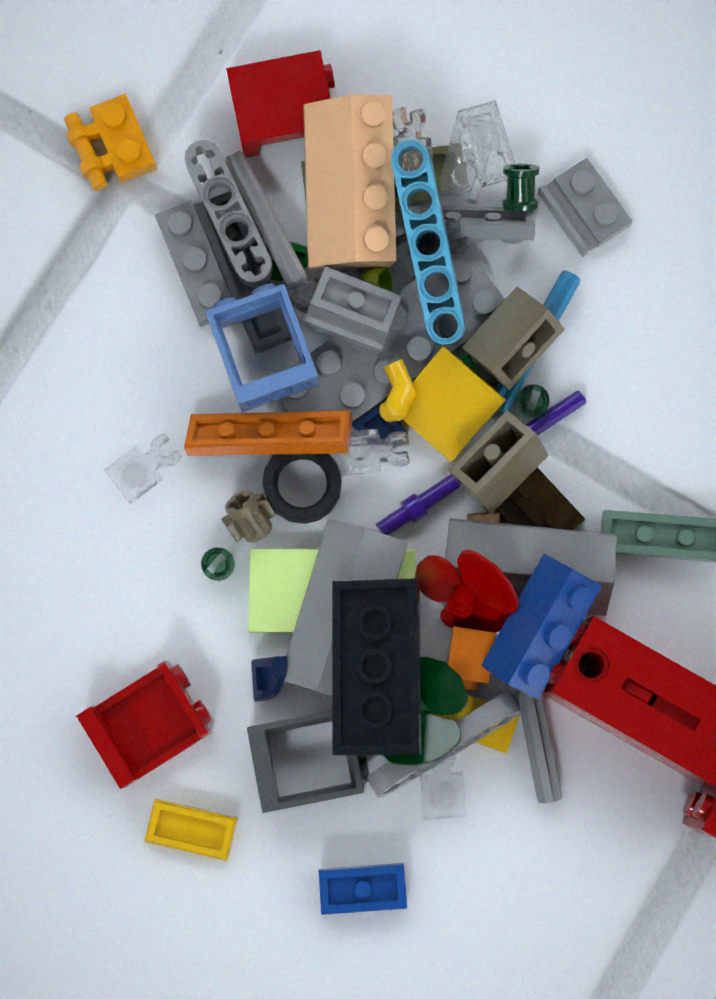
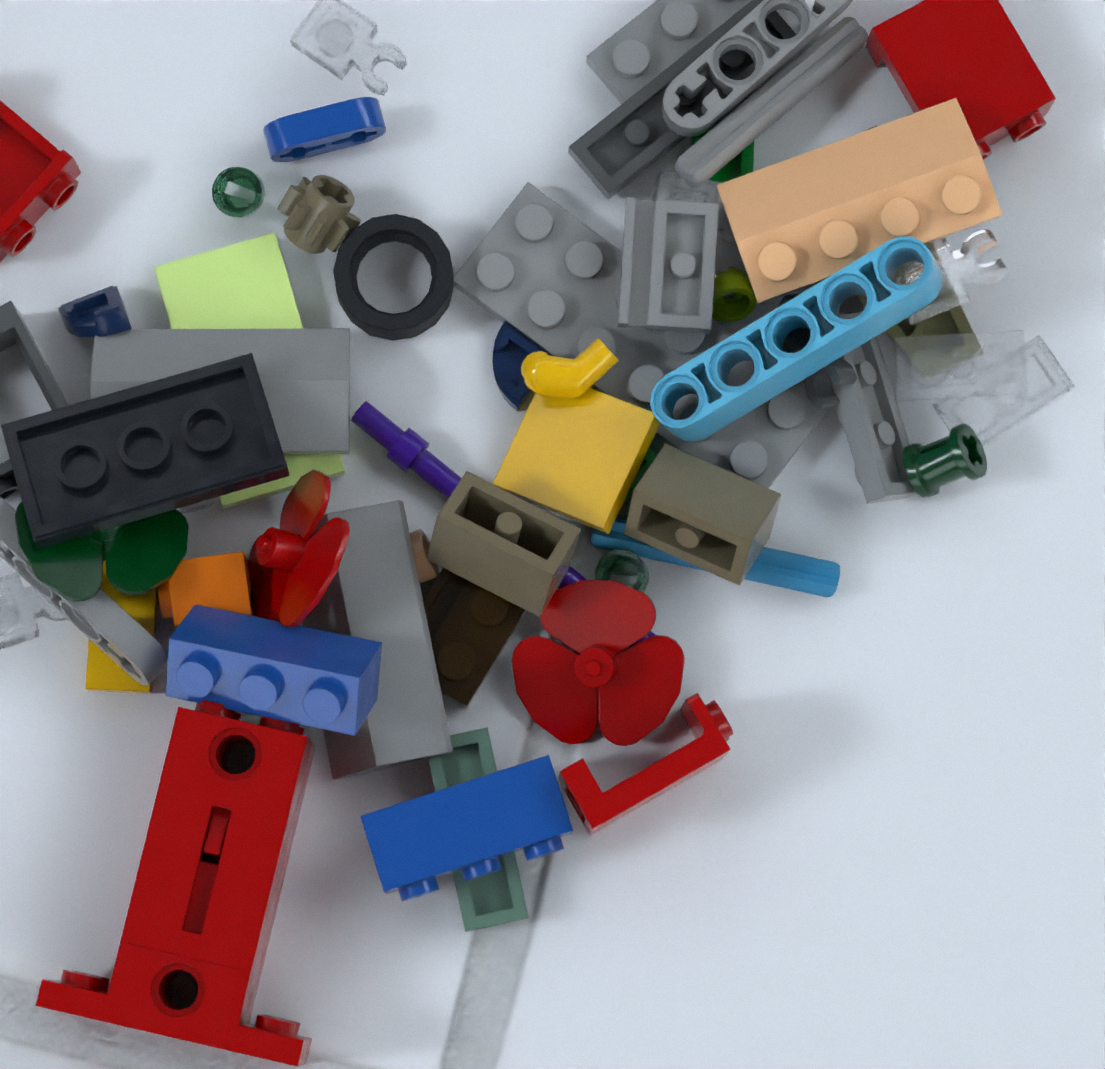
camera: 70 degrees right, 0 degrees up
(193, 498) = (324, 129): none -> blue beam
(269, 433) = (449, 204): orange tile -> none
(278, 385) = (520, 194): medium blue window -> none
(368, 452) = (465, 355): clear plate -> none
(539, 748) = (105, 737): light grey axle -> none
(584, 207) = (952, 571): light grey plate -> none
(584, 419) = (625, 689): none -> red piece
(669, 415) = (601, 808): none -> red panel
(669, 537) = (468, 828): none -> blue brick

